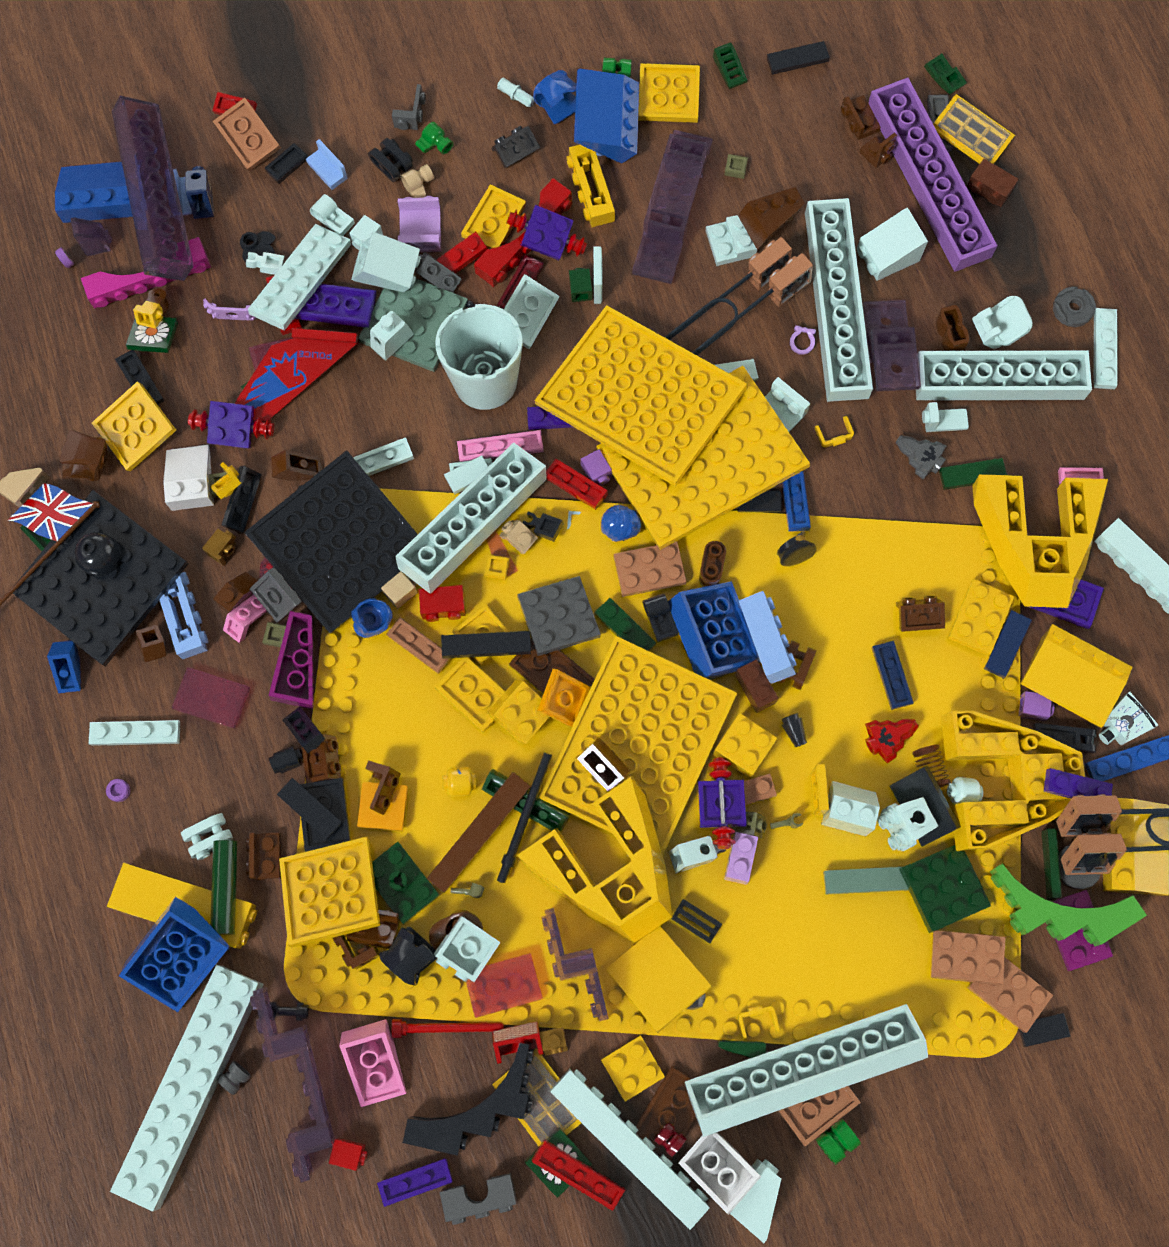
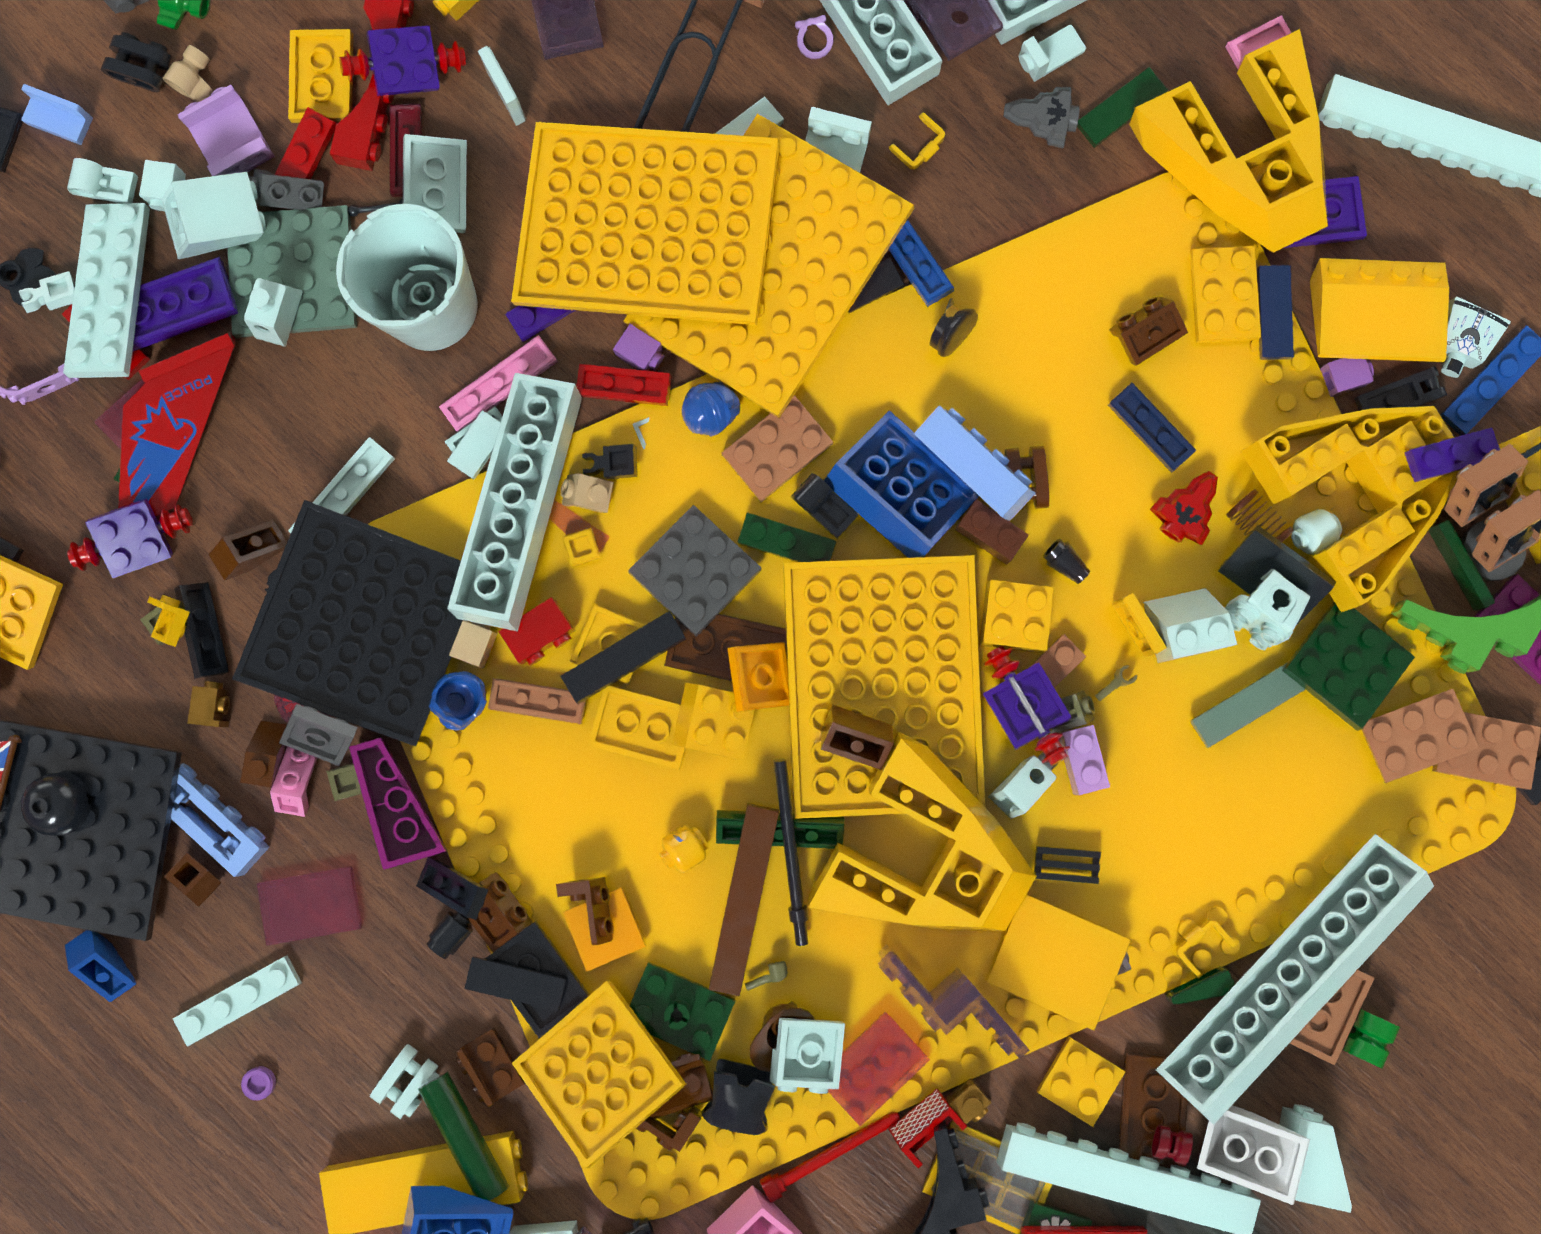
camera: 20 degrees left, 10 degrees up
(188, 478) = (114, 637): white slope -> none
(580, 285) = (485, 109): dark green brick -> none
(712, 563) = (855, 402): reddish brown brick -> none

